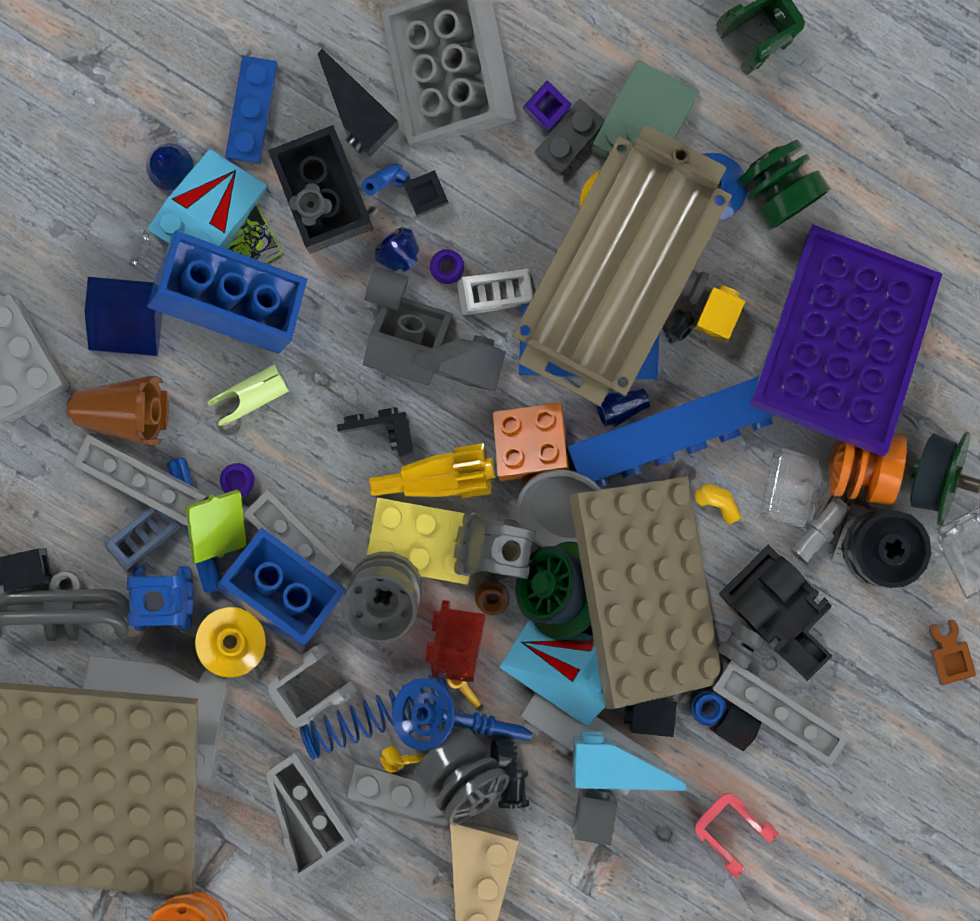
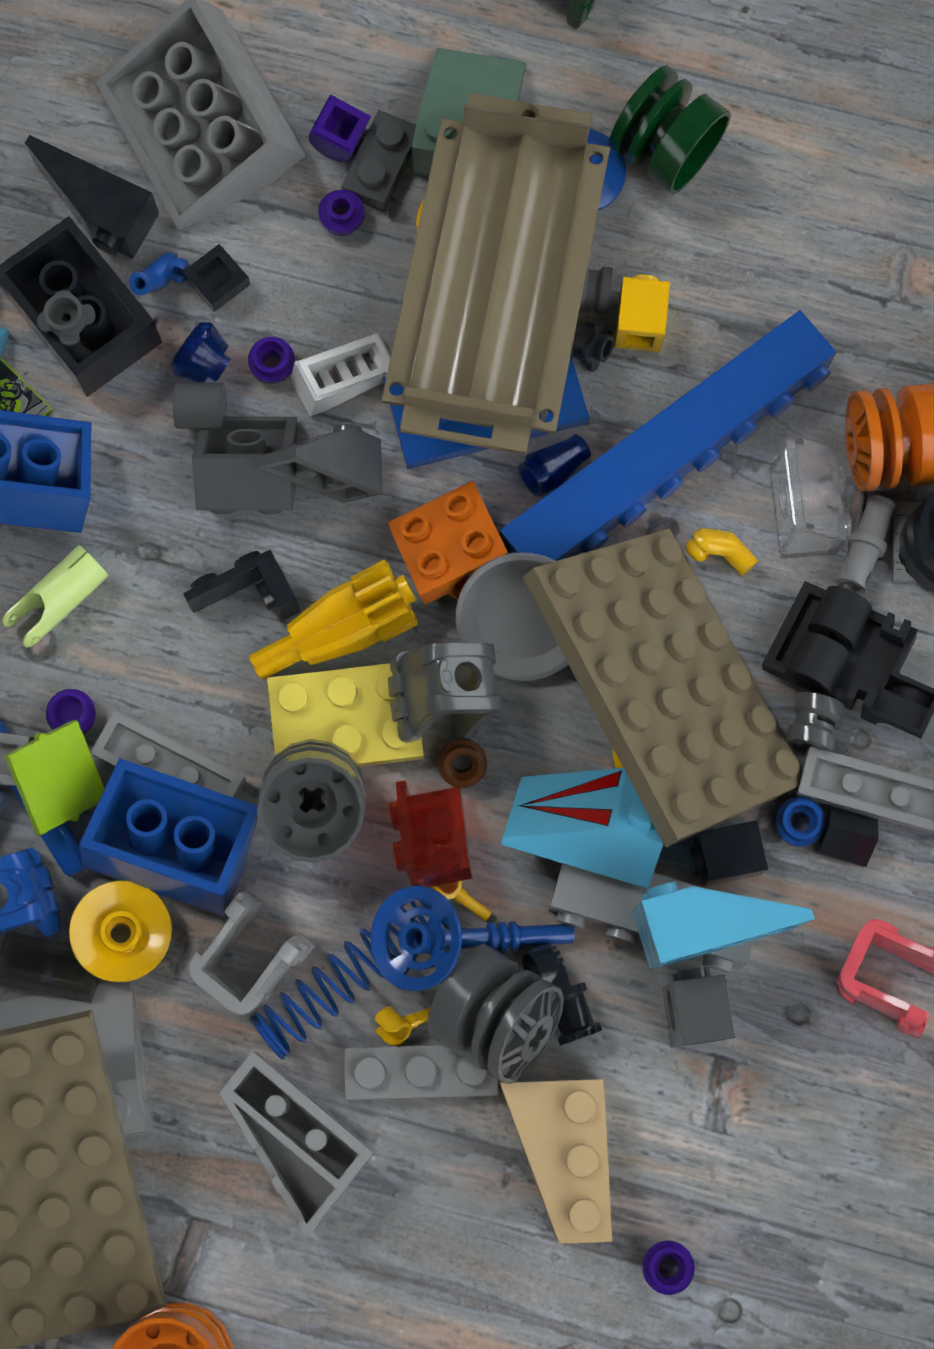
camera: 20 degrees left, 10 degrees down
(525, 179) = (341, 224): none -> dark purple plate
(555, 591) = (546, 721): dark green piece -> none
(847, 340) = (818, 290): dark purple plate -> none

